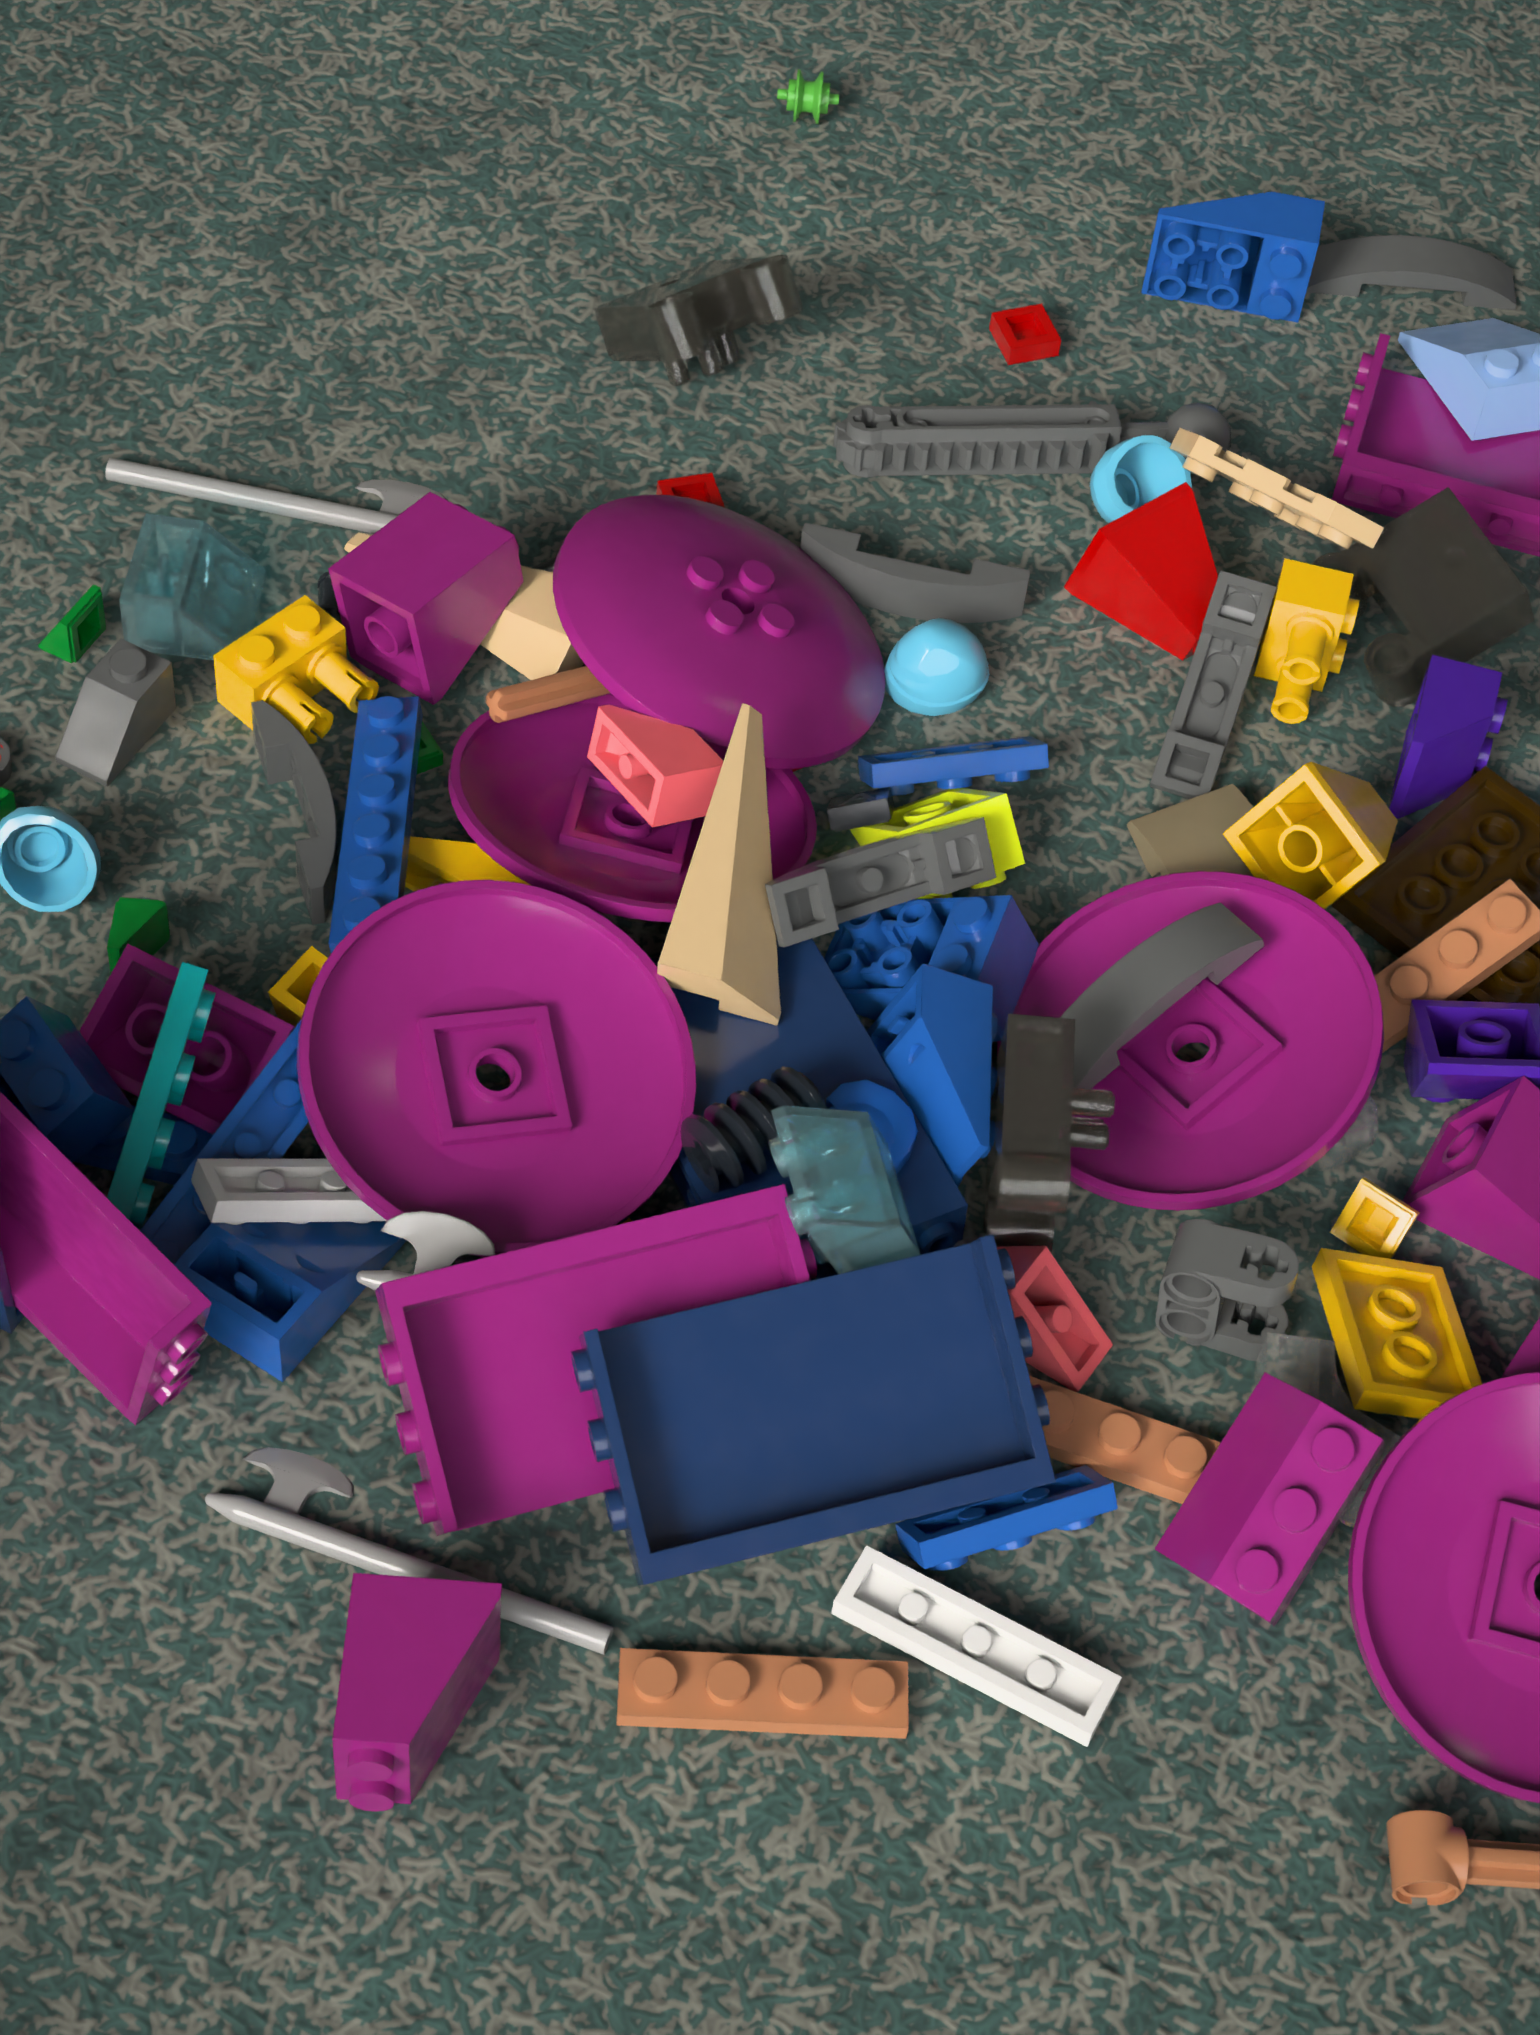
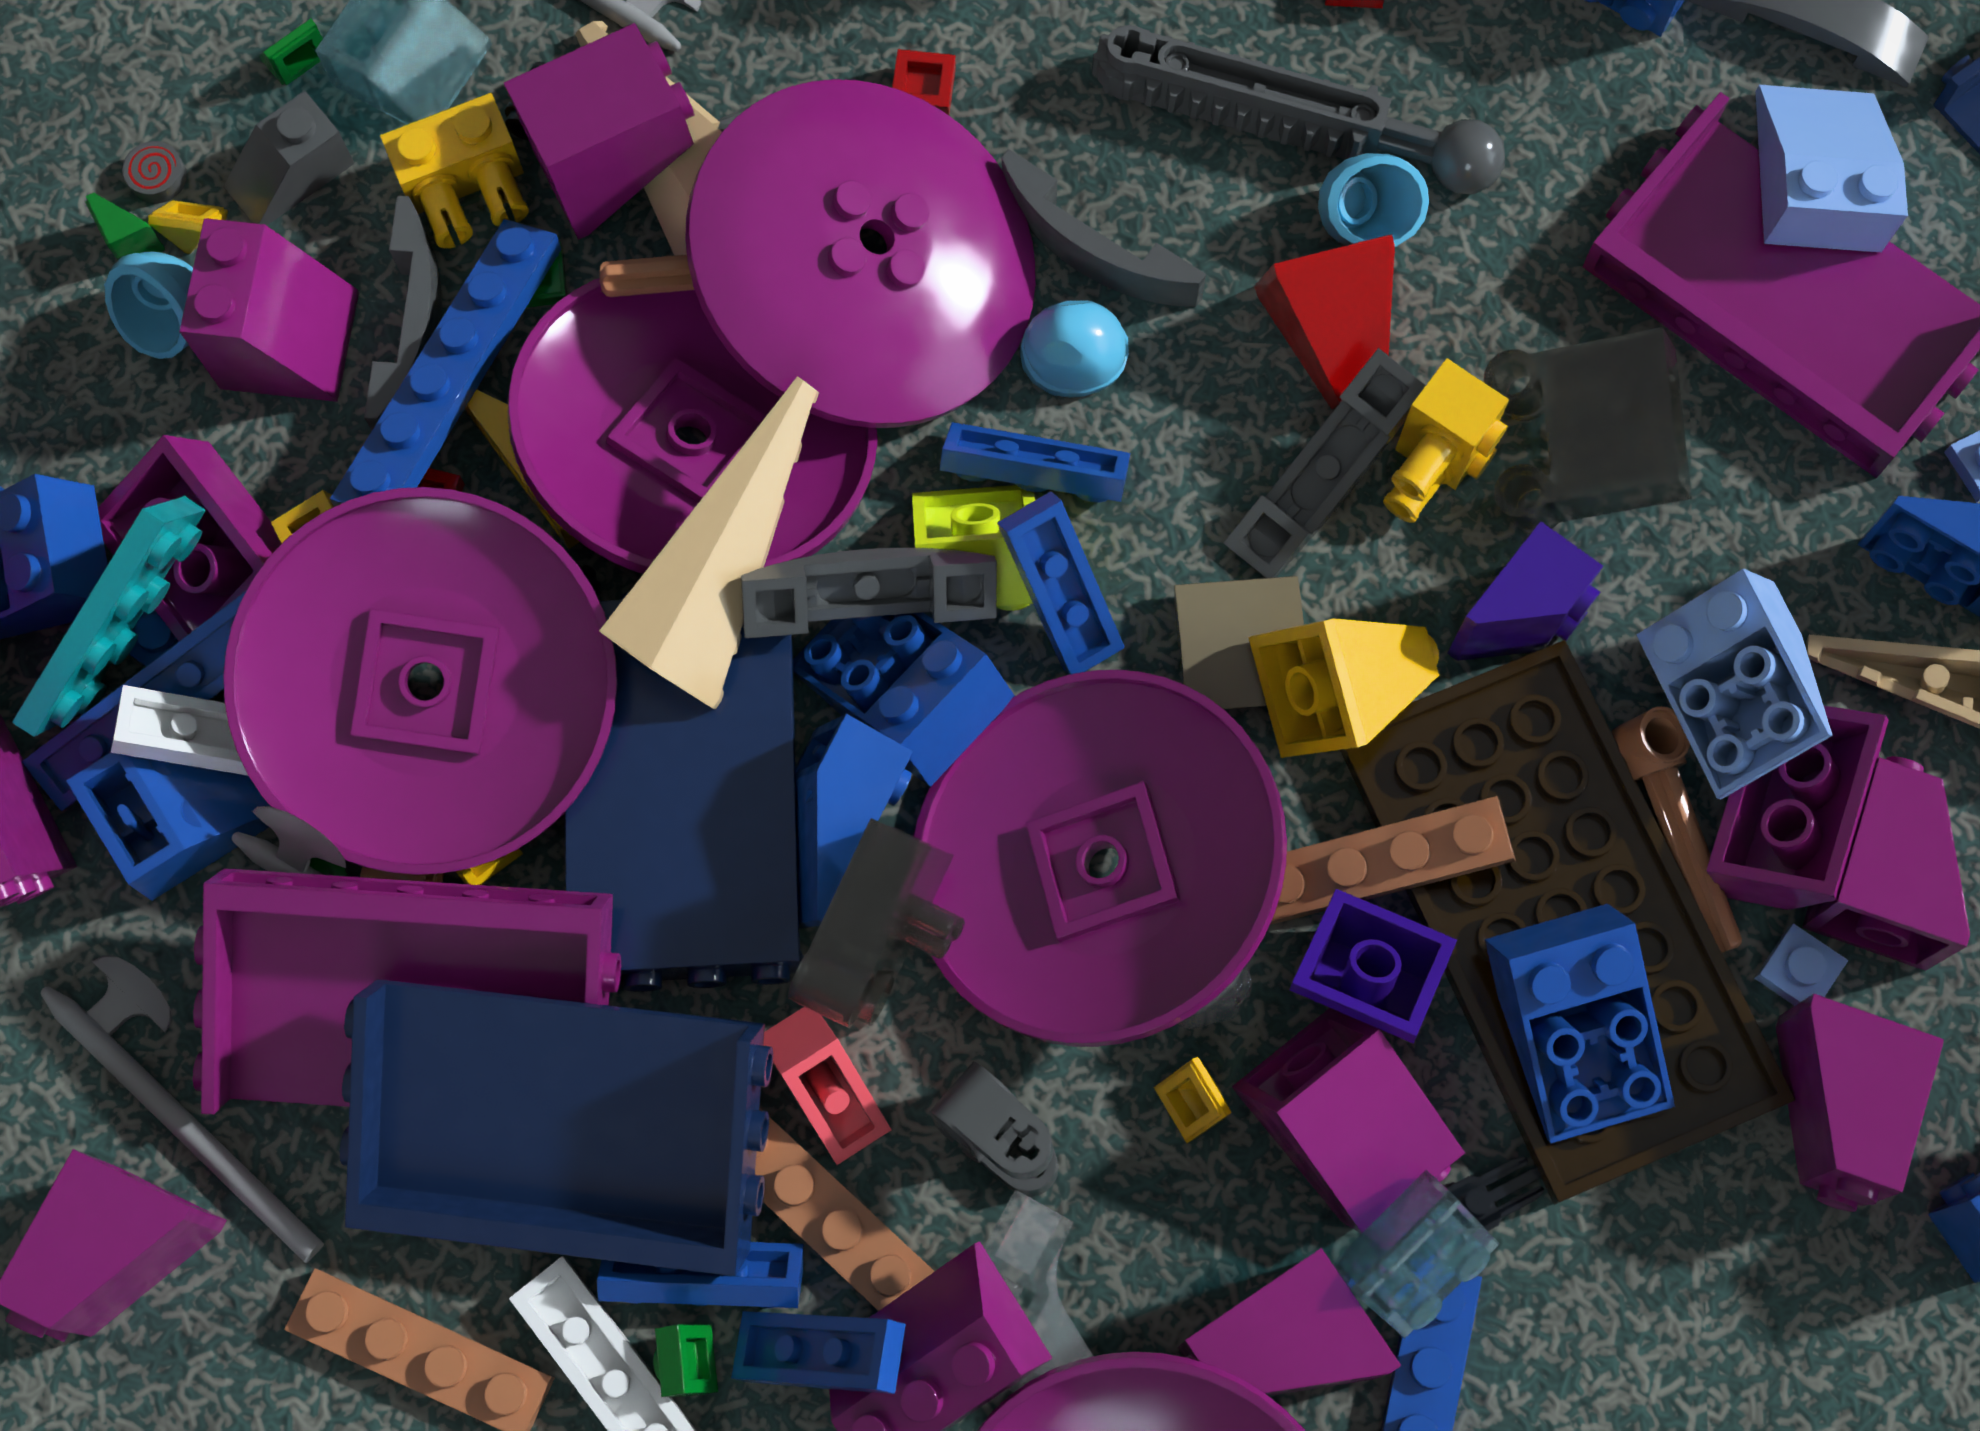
camera: 30 degrees right, 20 degrees up
(39, 791) = (183, 222): none -> yellow slope
(137, 923) = (203, 408): green slope -> none
(172, 827) = (267, 314): none -> magenta slope
(654, 764) = (718, 394): coral slope -> none
(743, 1127) = (630, 824): black piece -> none
(842, 1187) = (663, 923): clear light blue slope -> none
(860, 809) = (918, 487): black tile -> none
(887, 1111) = (763, 853): blue piece -> none
(1030, 1598) = (685, 1360): none -> green plate
(1041, 830) = (1061, 584): none -> blue plate
(1152, 980) = (1068, 795): dark grey slope -> none
(1165, 1525) = (819, 1351): none -> blue plate
(1275, 493) = (1500, 263): tan plate -> none
(1394, 1332) = (1141, 1238): yellow plate -> none

